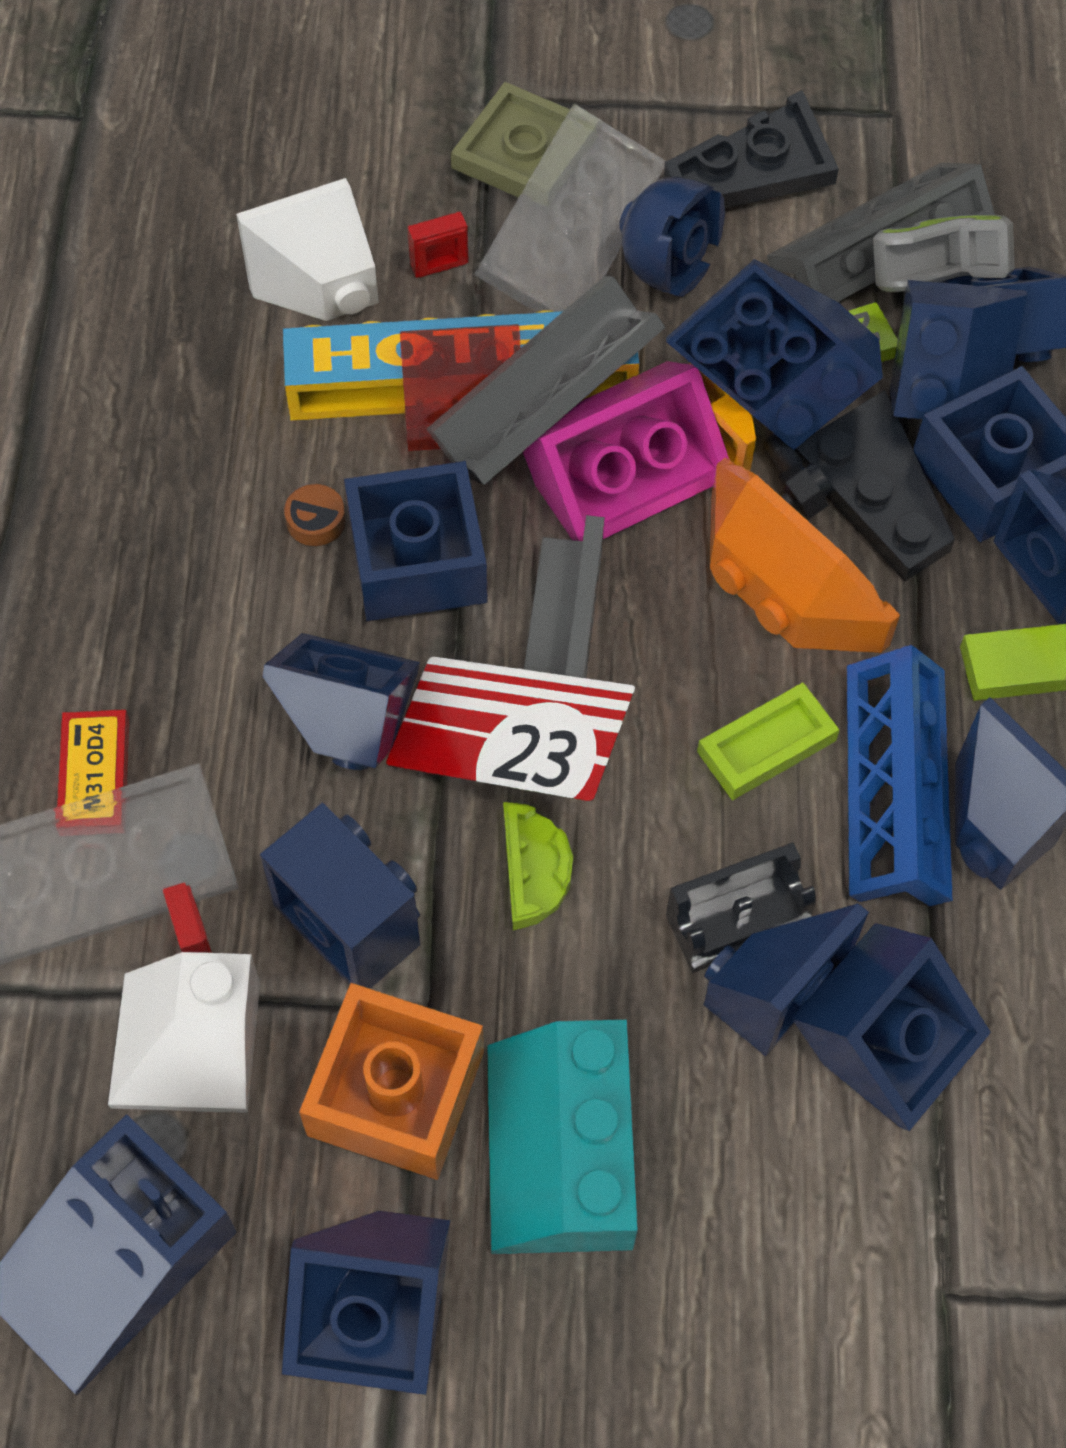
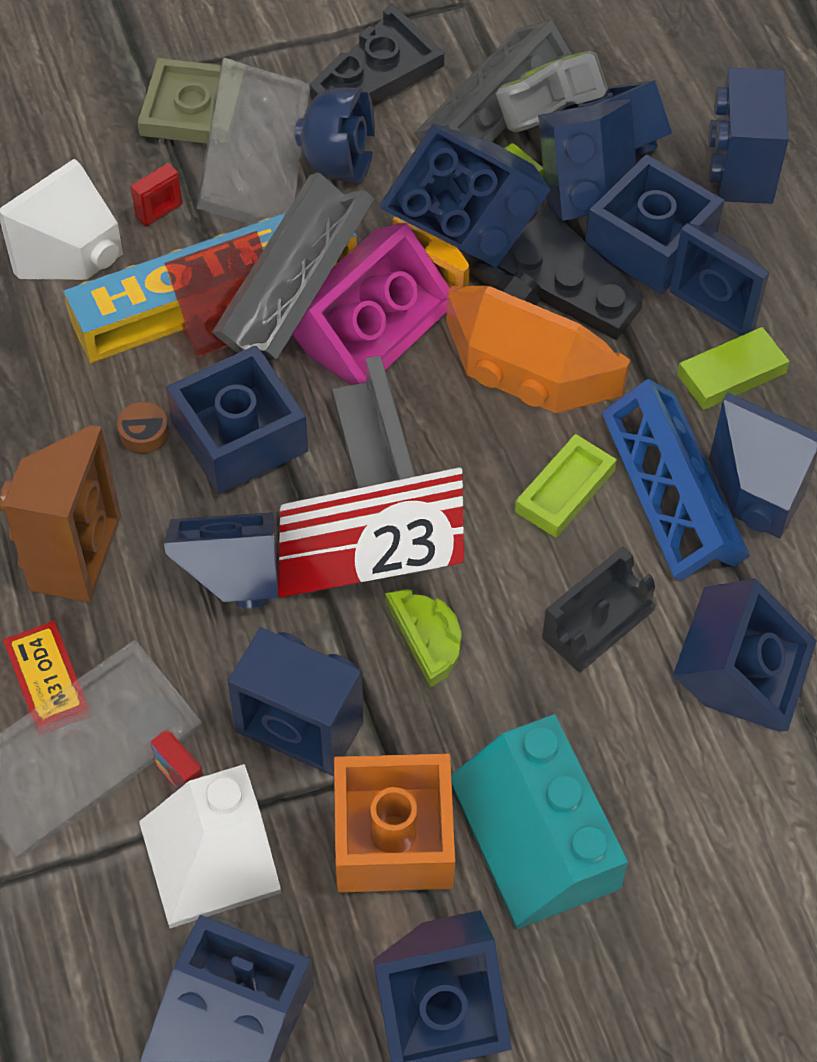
camera: 20 degrees left, 5 degrees down
(170, 593) = (63, 514): none -> dark orange slope
(778, 972) = (647, 646): dark blue slope -> none

